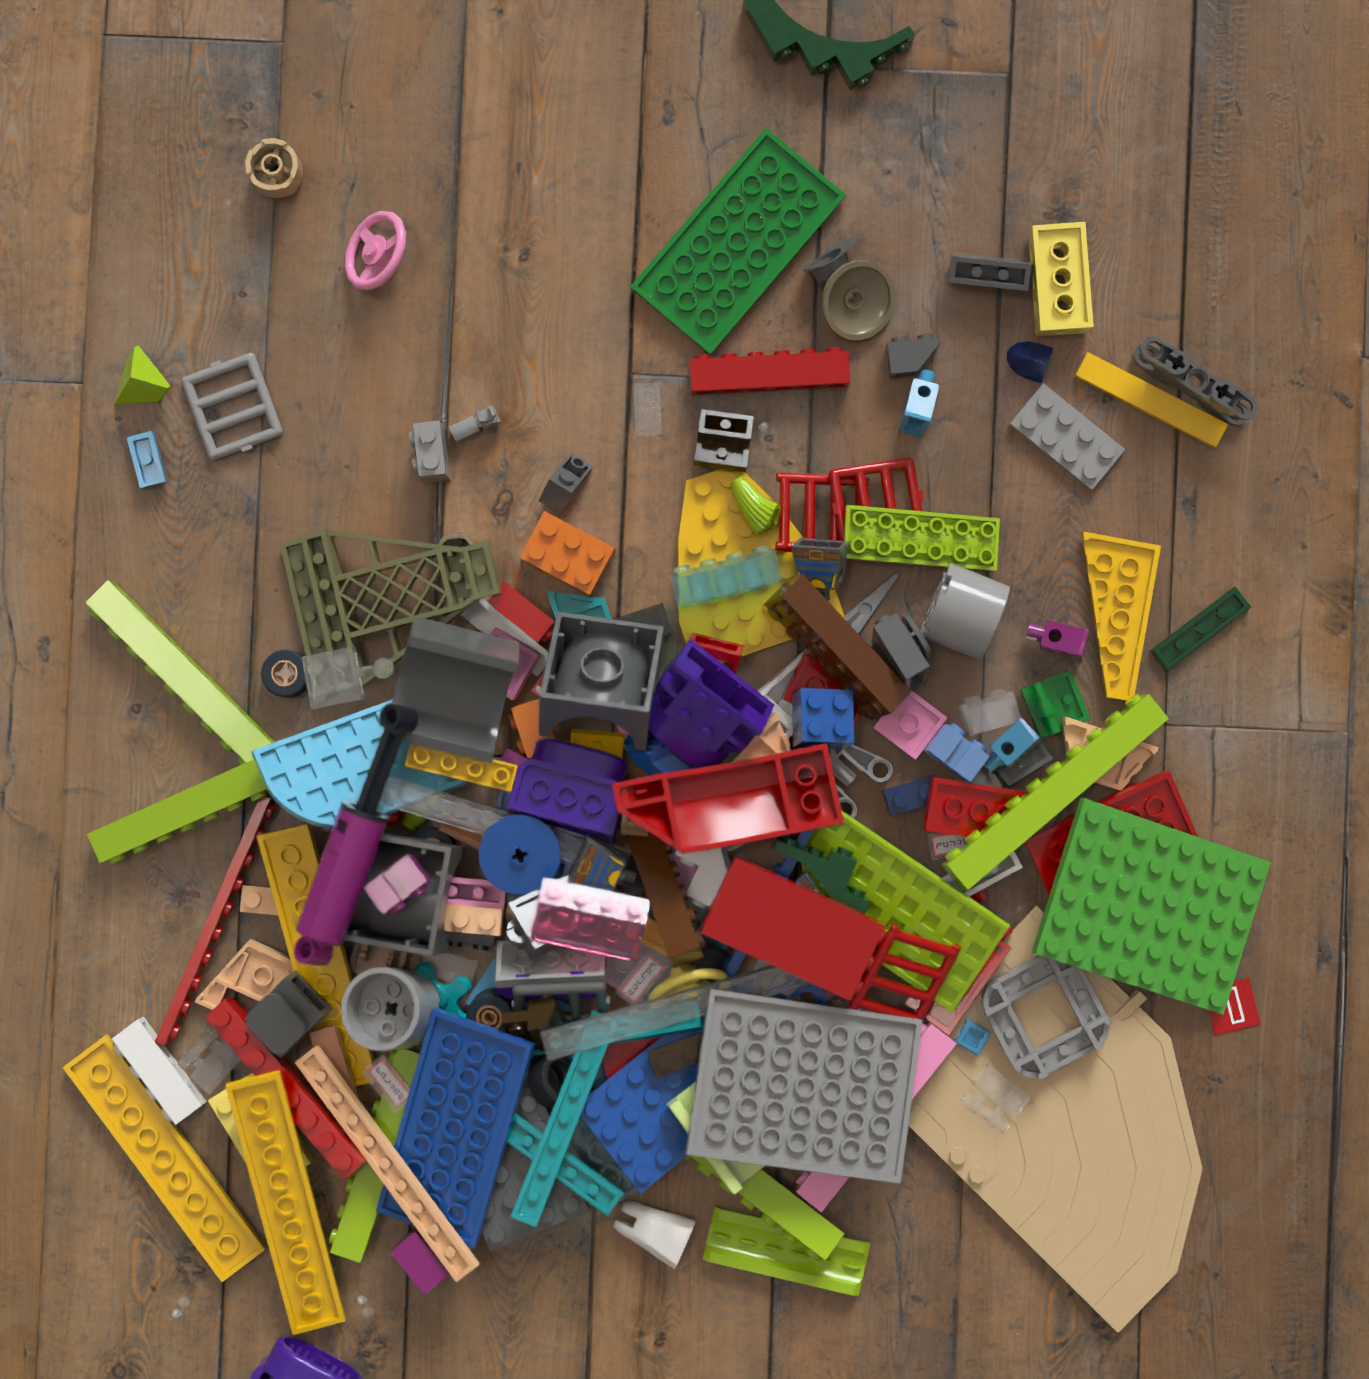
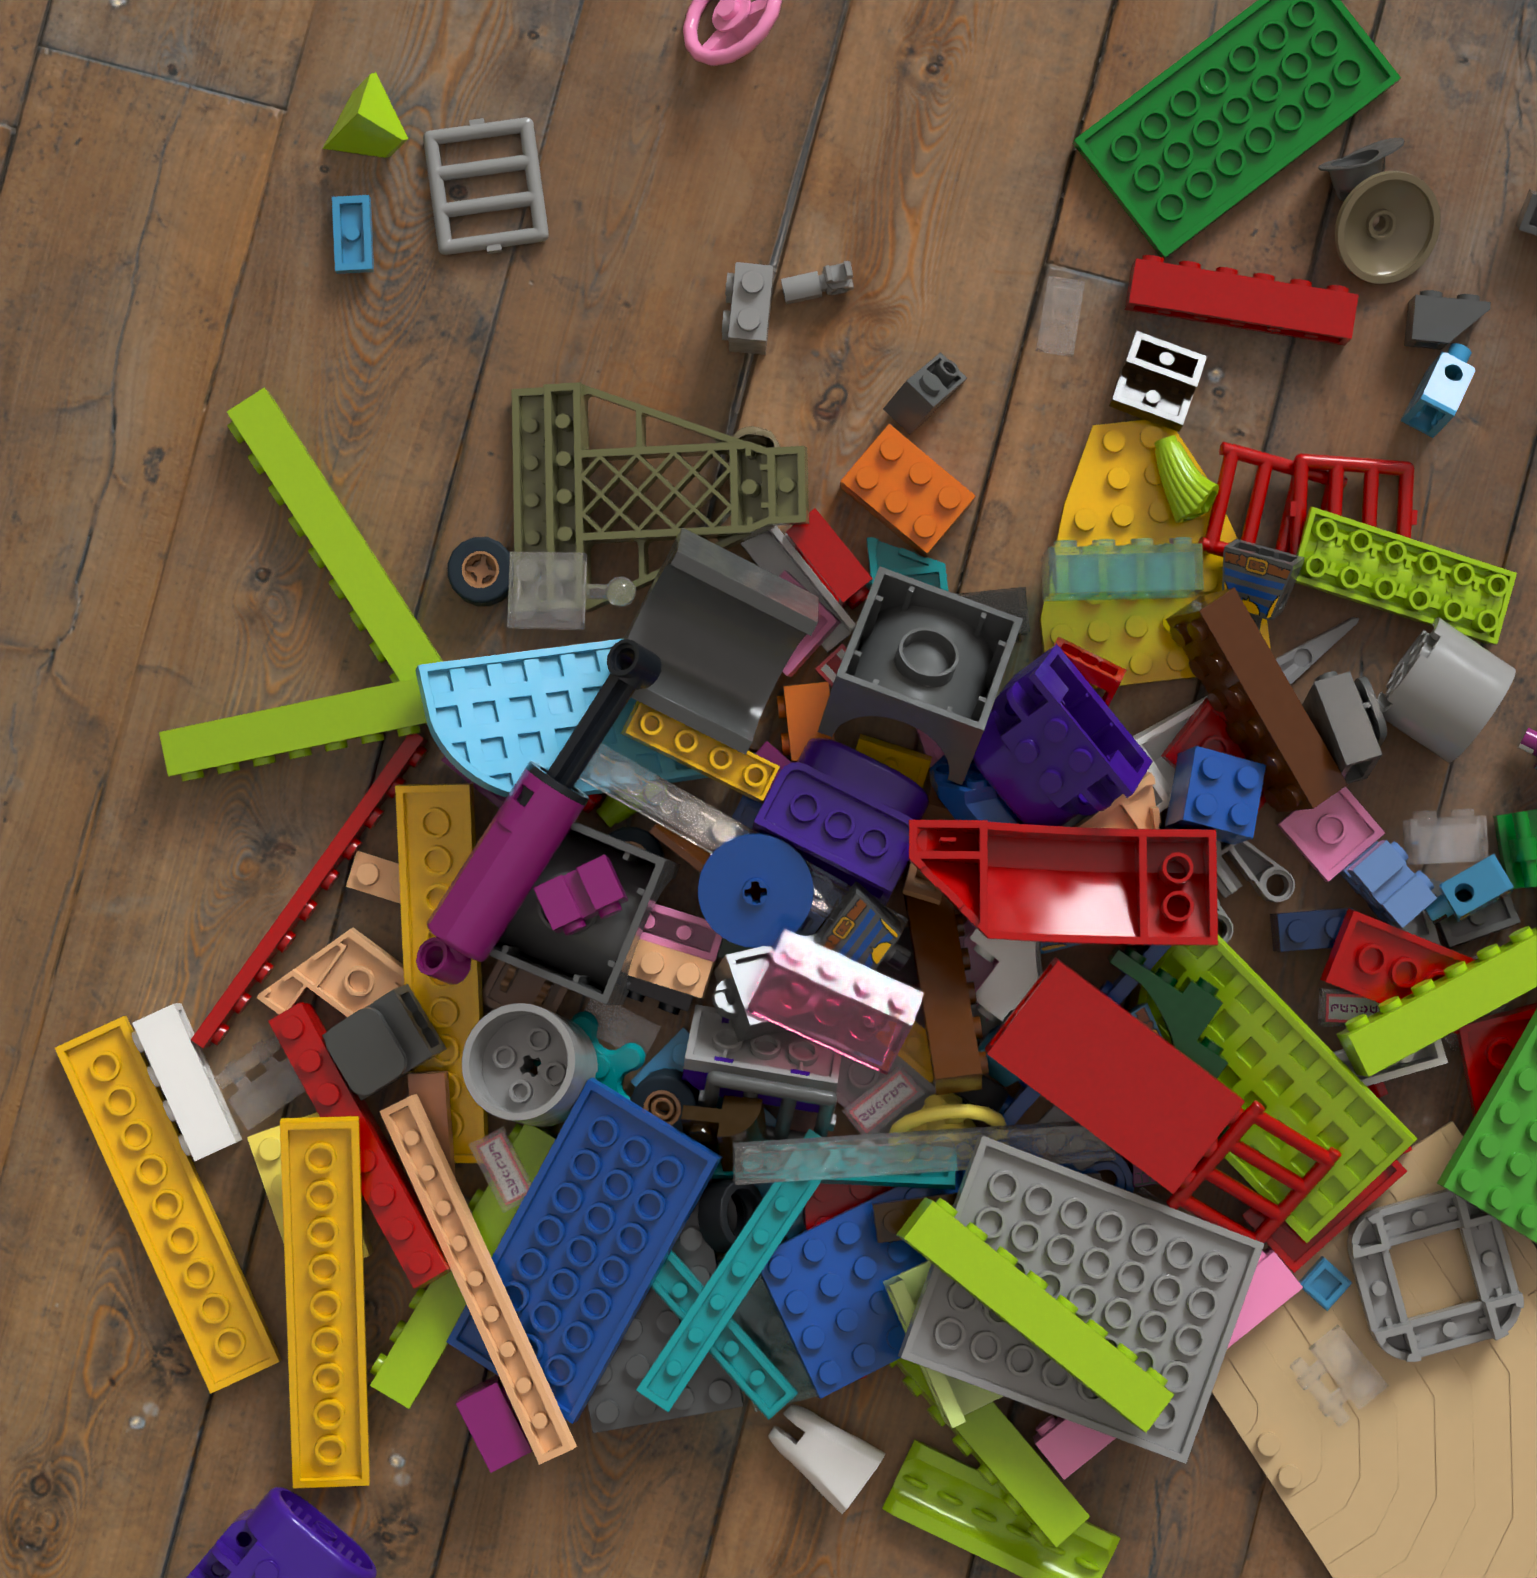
camera: 10 degrees right, 0 degrees up
(773, 1104) = (1036, 1314): none -> lime brick

